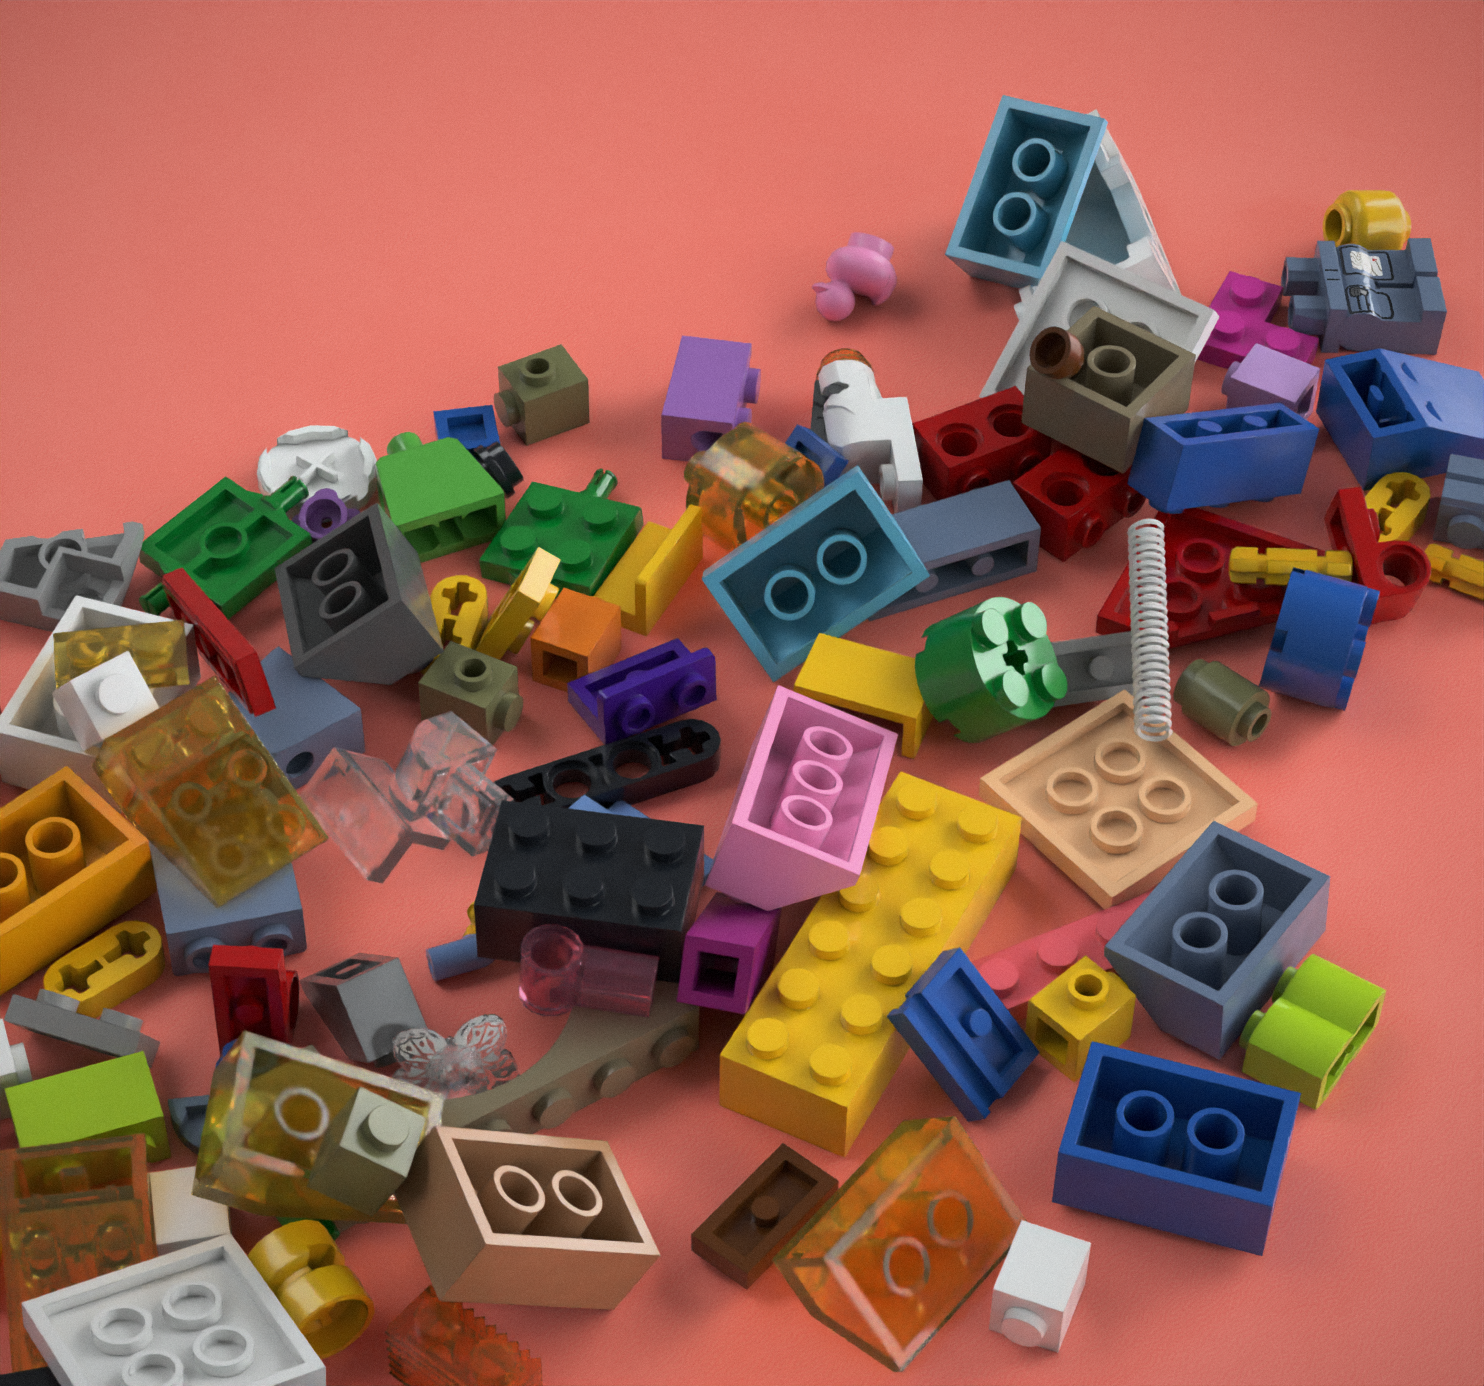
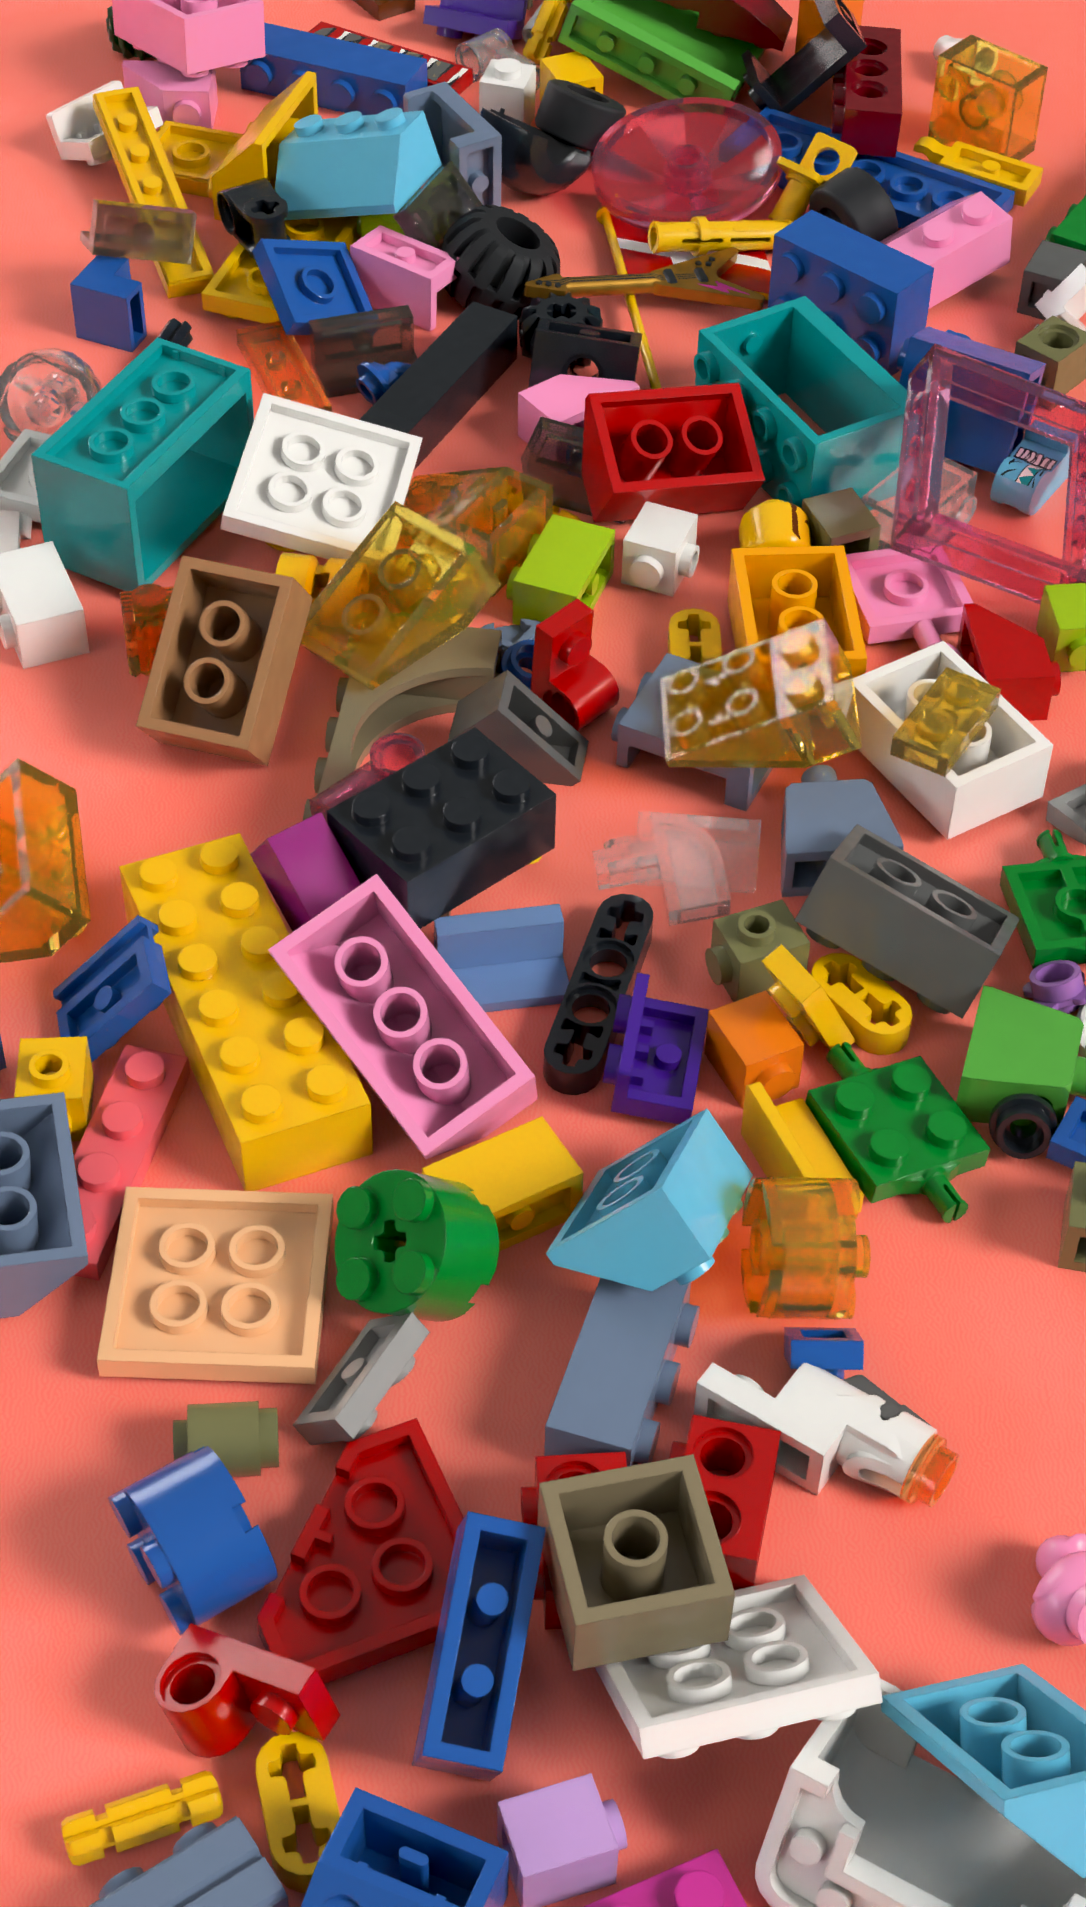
camera: 130 degrees right, 0 degrees up
(56, 1017) = (640, 603): light grey plate -> none
(105, 700) = (879, 656): white brick -> none
(219, 643) = (929, 798): red tile -> none
(366, 1152) = (329, 569): olive brick -> none
(456, 1064) = (400, 719): clear animal -> none
(707, 395) = (987, 1336): medium lavender brick -> none
(763, 1215) = (118, 823): reddish brown plate -> none
(1056, 353) = (665, 1456): reddish brown hinge -> none
(1151, 631) = (339, 1390): white piece -> none
(1277, 564) = (302, 1597): yellow axle -> none

